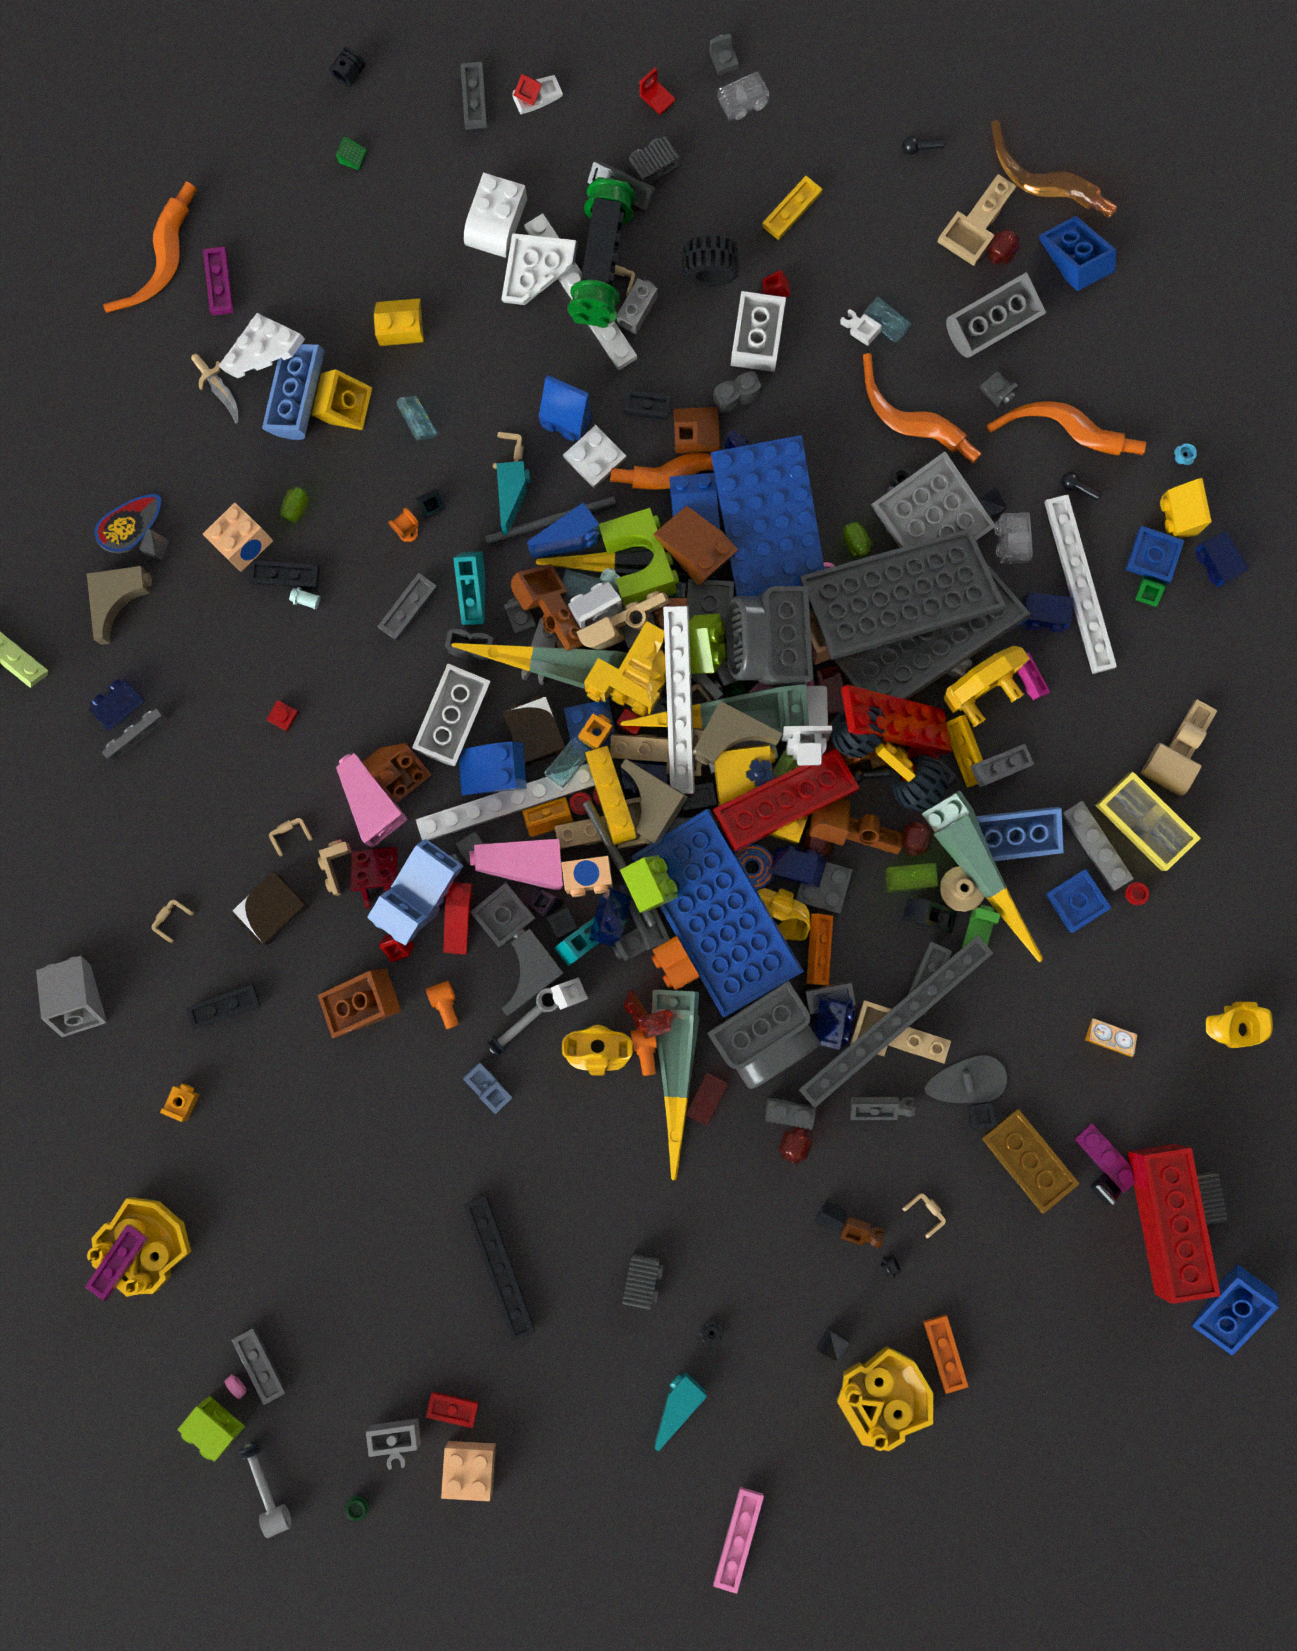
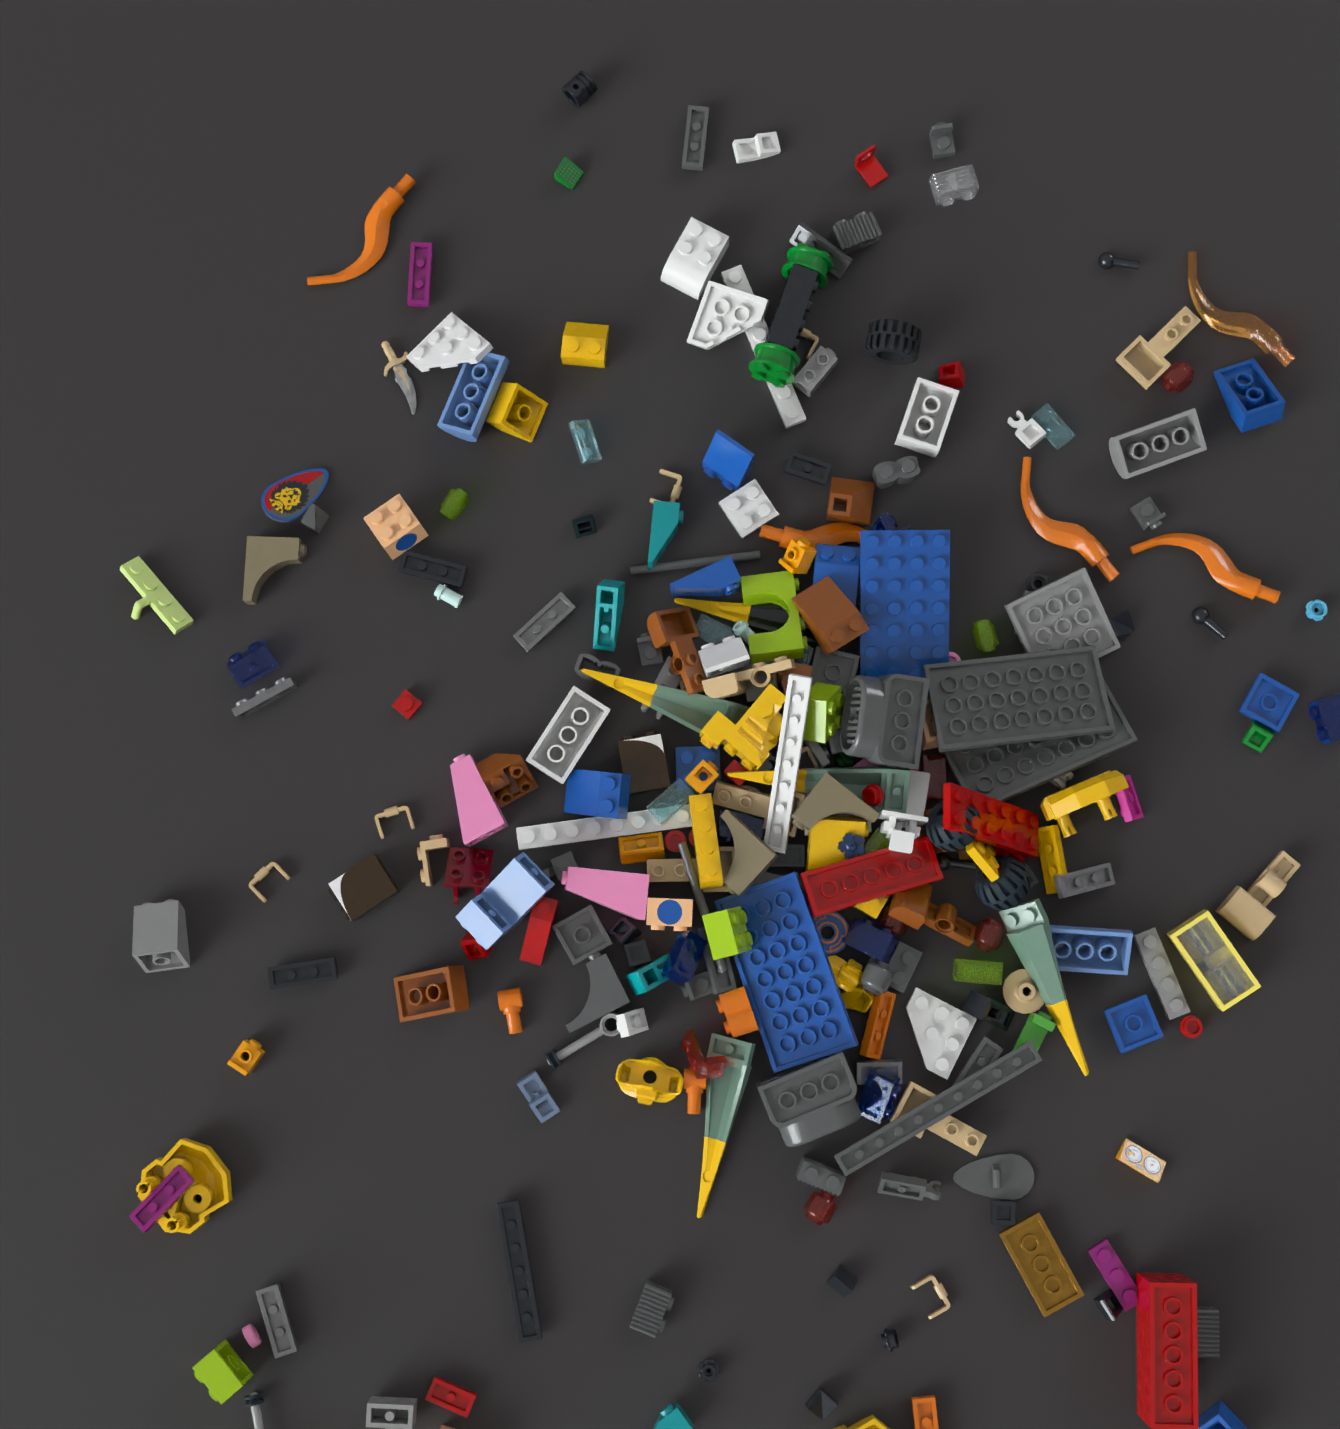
camera: 10 degrees right, 0 degrees up
(405, 525) = (556, 544): orange connector -> none
(528, 89) = (748, 142): red plate -> none
(653, 492) = (798, 556): none -> light orange brick
(706, 1099) = (744, 1146): clear red plate -> none
(772, 716) = (872, 795): none -> red plate
(792, 207) = (981, 301): yellow plate -> none
(810, 901) = (876, 978): none -> dark grey head
(860, 1232) = (867, 1302): reddish brown plate -> none
(883, 945) = (938, 1031): none -> white plate
(1014, 538) = (1136, 662): clear brick -> none
(1048, 611) = (1156, 739): clear blue brick -> none
(1080, 584) = (1191, 718): white plate -> none
(1186, 509) = (1306, 665): yellow slope -> none
(1226, 1025) = (1251, 1172): yellow piece -> none

